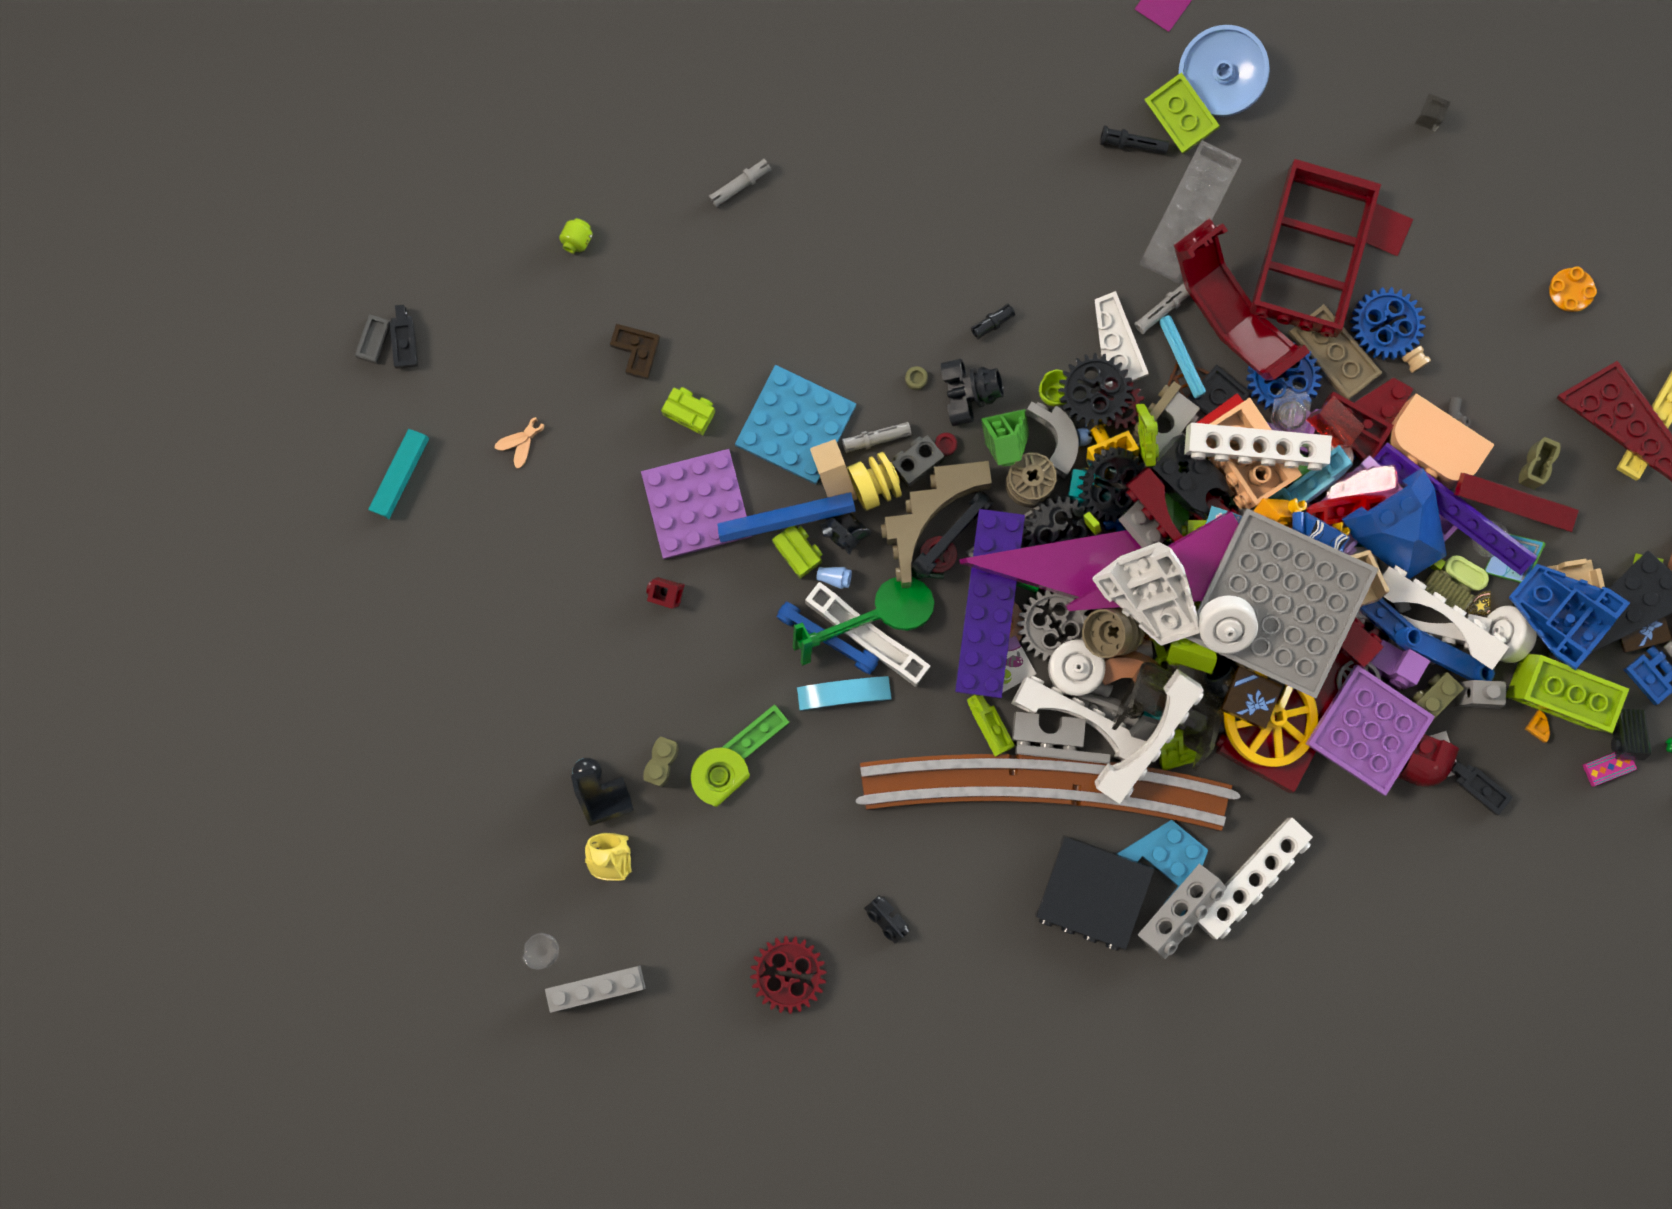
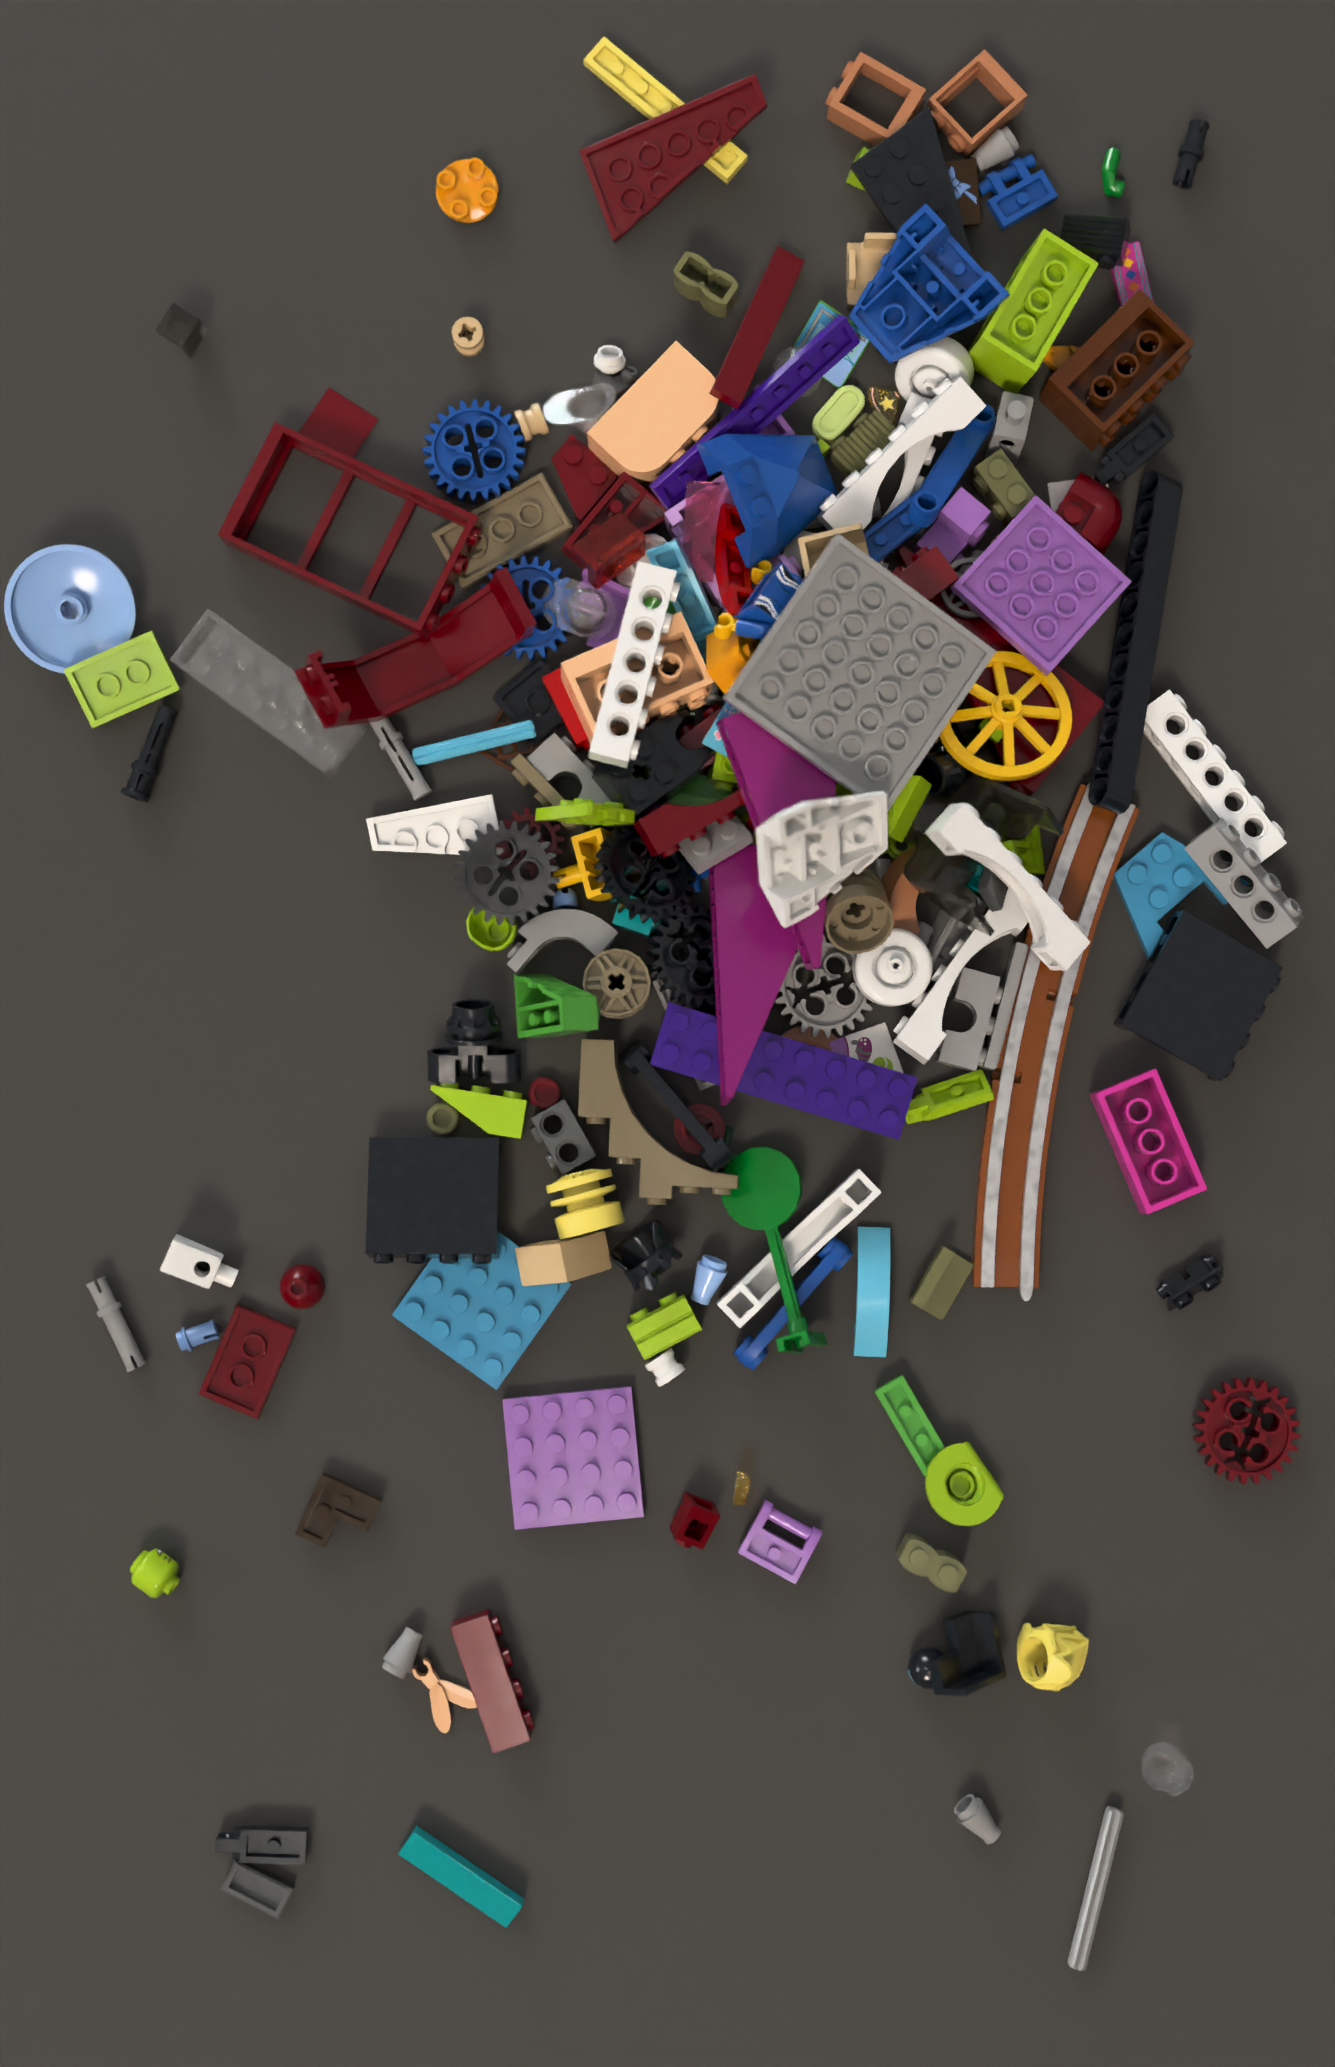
camera: 75 degrees left, 5 degrees up
(450, 915) = (1095, 1888): none -> light grey axle
(487, 822) = (975, 1816): none -> light grey cone
(535, 471) = (492, 1680): none -> brick
(545, 409) = (402, 1654): none -> light grey cone
(595, 988) = (1228, 1700): light grey brick -> none
(652, 651) = (775, 1552): none -> medium lavender plate
(688, 410) = (438, 1449): lime brick -> none
(691, 622) = (741, 1489): none -> clear yellow tile
(728, 274) = (247, 1361): none -> dark red tile
(740, 237) = (197, 1335): none -> medium blue pin
(768, 556) = (665, 1367): none -> white wheel
(784, 302) = (302, 1286): none -> dark red brick
(786, 517) = (617, 1336): blue tile -> none
(791, 218) = (183, 1259): none -> white torso
(858, 740) = (941, 1282): none -> olive panel
(860, 377) = (433, 1199): none -> black panel
(869, 439) = (519, 1188): light grey pin -> none
(925, 411) = (492, 1113): none -> lime slope
(984, 870) = (1148, 1141): none -> dark pink brick
(992, 321) = (379, 997): black pin -> none
(1092, 523) = (695, 910): lime piece -> none
(1227, 624) = (882, 753): white wheel -> none
(1251, 697) = (979, 738): dark brown tile -> none
(1342, 807) = (1135, 643): none -> black beam
(1434, 388) = (580, 406): none -> clear piece
(1464, 310) = (471, 343): none -> tan wheel
(1472, 406) = (609, 359): none -> white plate
(1537, 764) = (1117, 371): none -> reddish brown brick

